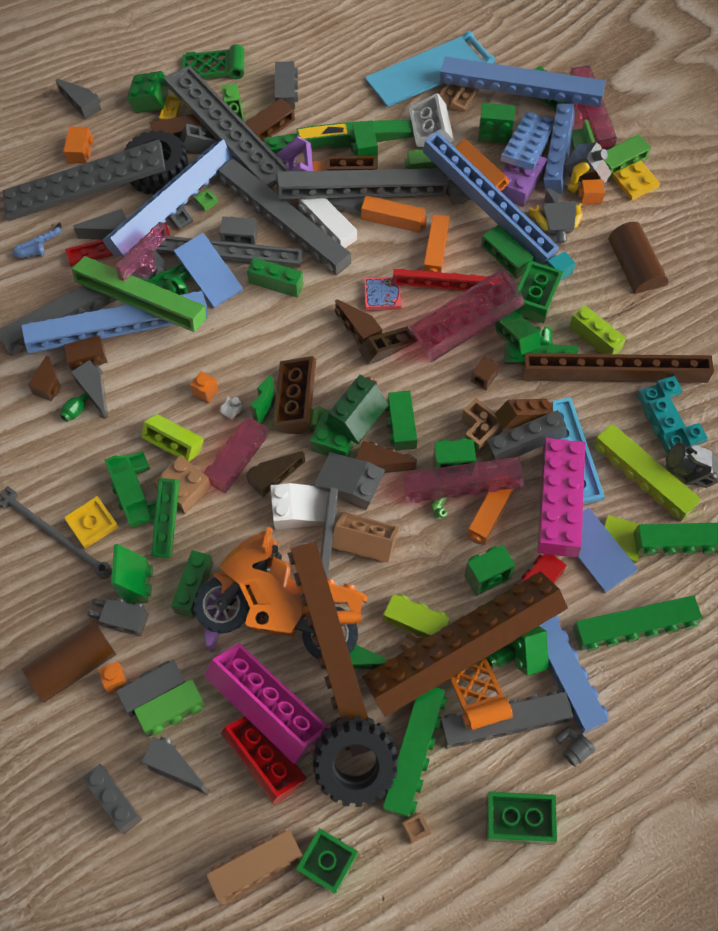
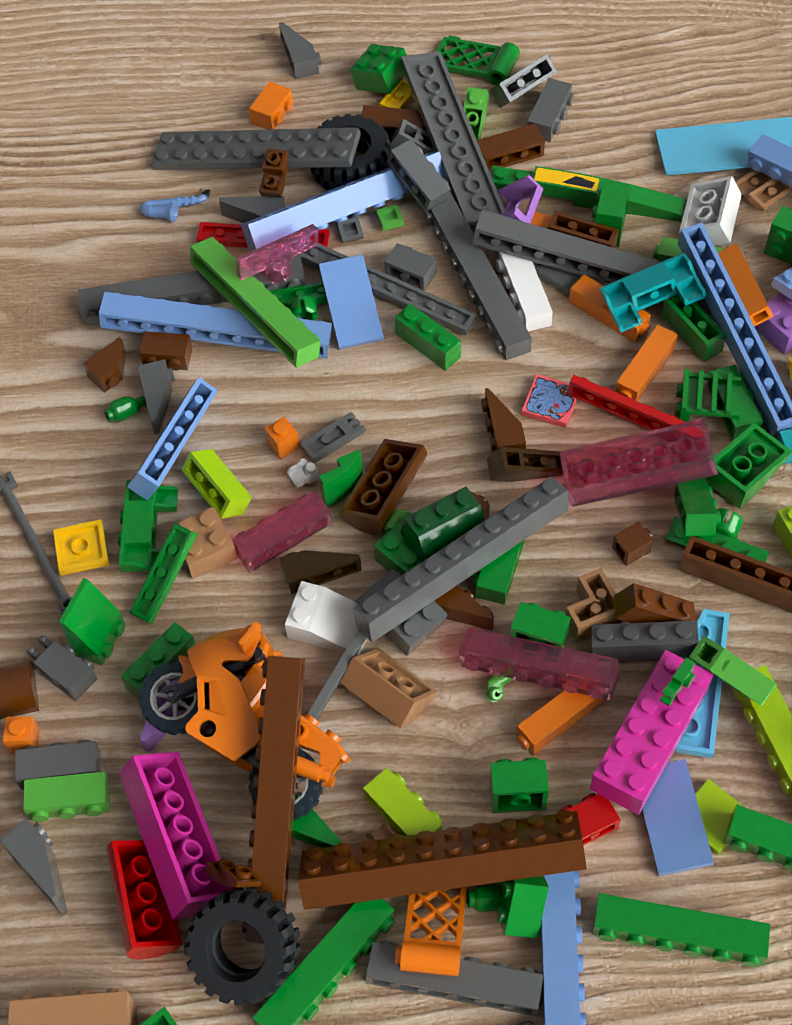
camera: 25 degrees right, 5 degrees down
(108, 193) = (274, 174): none -> reddish brown slope
(125, 417) = (172, 439): none -> medium blue brick
(217, 161) = (418, 175): none -> dark grey brick
(240, 374) = (332, 437): none -> dark grey hinge
(257, 69) = (523, 80): none -> brick
(323, 716) = (230, 875): none -> reddish brown slope
(378, 428) = (460, 559): none -> dark grey brick
(418, 189) = (649, 287): none -> teal bracket
(456, 206) = (694, 327): none -> green brick
(478, 256) = (691, 395): none -> green plate
(569, 453) = (682, 678): none -> green plate
(596, 435) = (732, 670): none -> bright green slope

